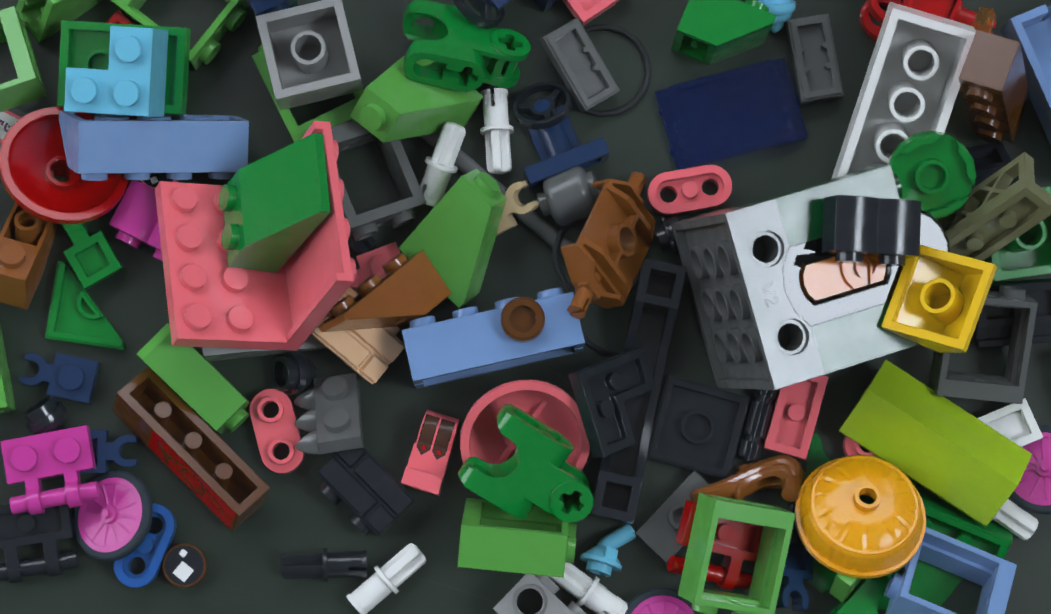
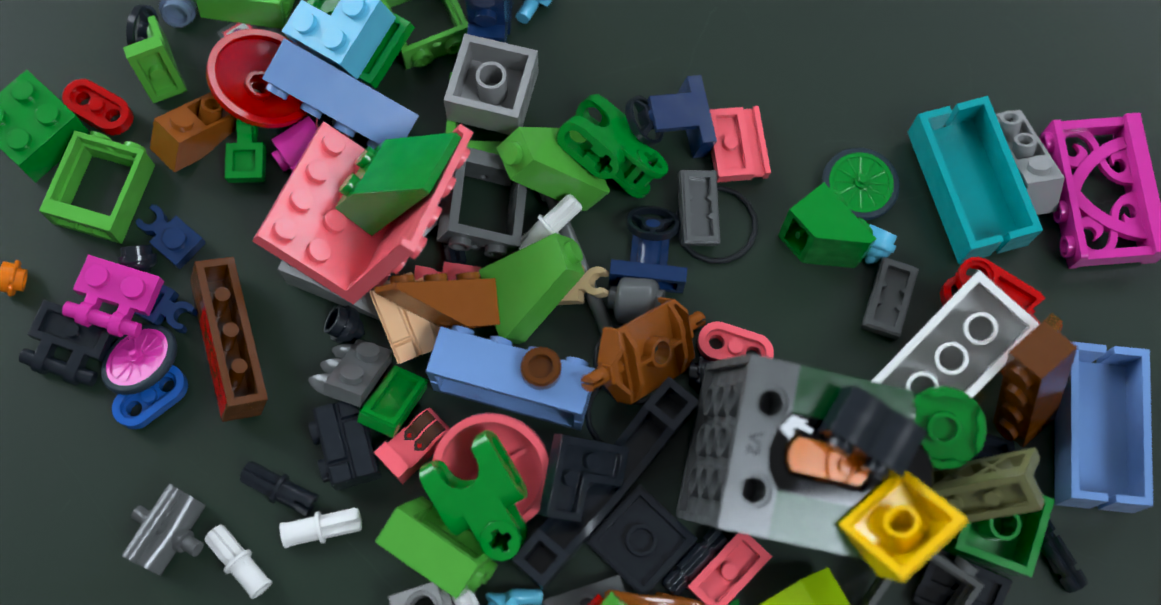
camera: 30 degrees right, 10 degrees down
(76, 316) = (209, 198): green tile -> none
(185, 565) = (171, 429): tile -> none
(196, 382) = (262, 289): bright green slope -> none
(276, 431) = (304, 362): coral plate -> none
(388, 422) = (393, 401): none -> green tile
(497, 131) = (607, 224): white axle -> none
(731, 114) = (801, 307): clear blue piece -> none

